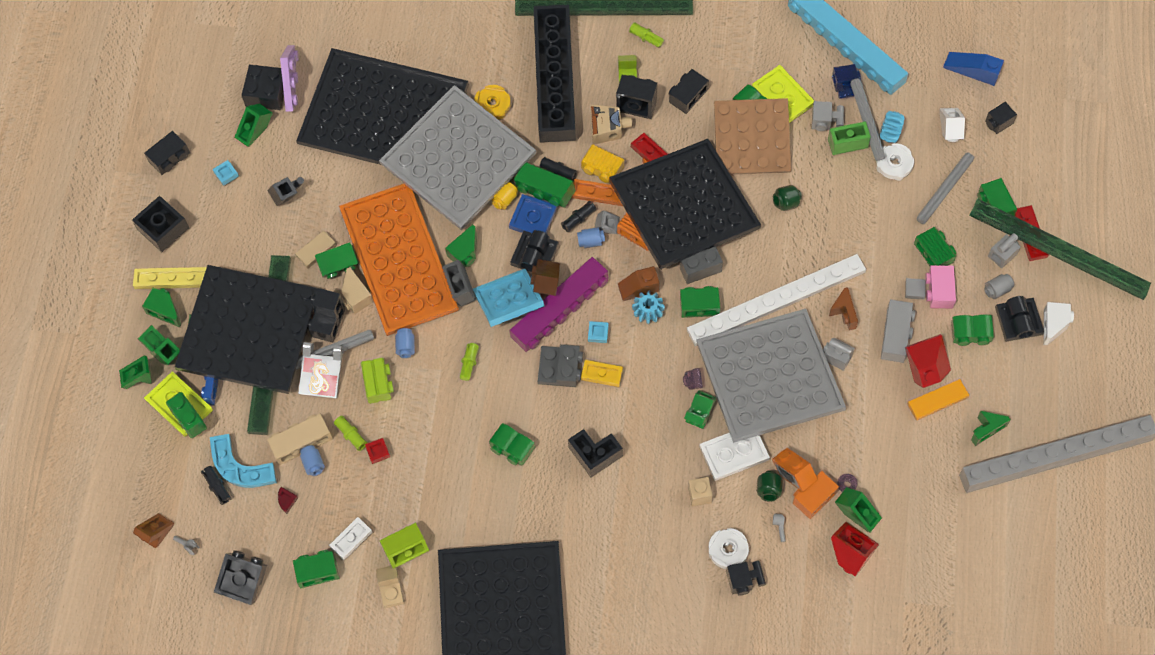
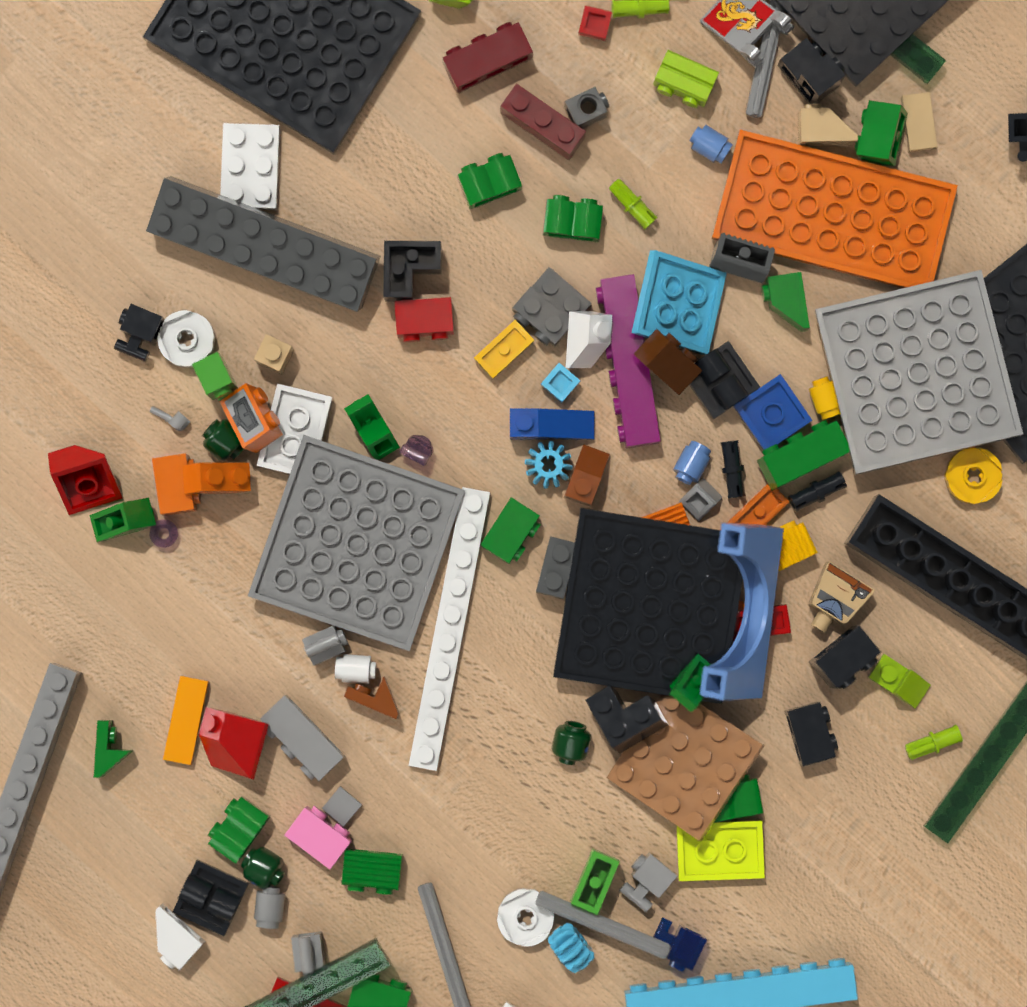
camera: 120 degrees right, 20 degrees up
(432, 428) = (582, 119): none -> dark grey brick
(439, 495) = (487, 56): none -> dark red brick
(456, 438) = (542, 121): none -> dark red brick
(501, 386) = (572, 219): none -> green brick
(561, 331) = (587, 337): none -> white slope
(600, 585) = (251, 164): none -> white plate
(613, 420) = (424, 318): none -> red brick
(619, 164) = (743, 667): none -> medium blue arch
(626, 323) = (551, 424): none -> blue slope
(641, 541) = (263, 243): none -> dark grey brick
(709, 153) = (688, 683): none -> green slope
(738, 510) = (215, 376): none -> bright green brick
(745, 475) = (251, 417): none -> brick
(758, 175) = (624, 725): none -> black brick
(838, 329) = (355, 669): none -> white brick
(981, 302) = (263, 867): none -> dark green head

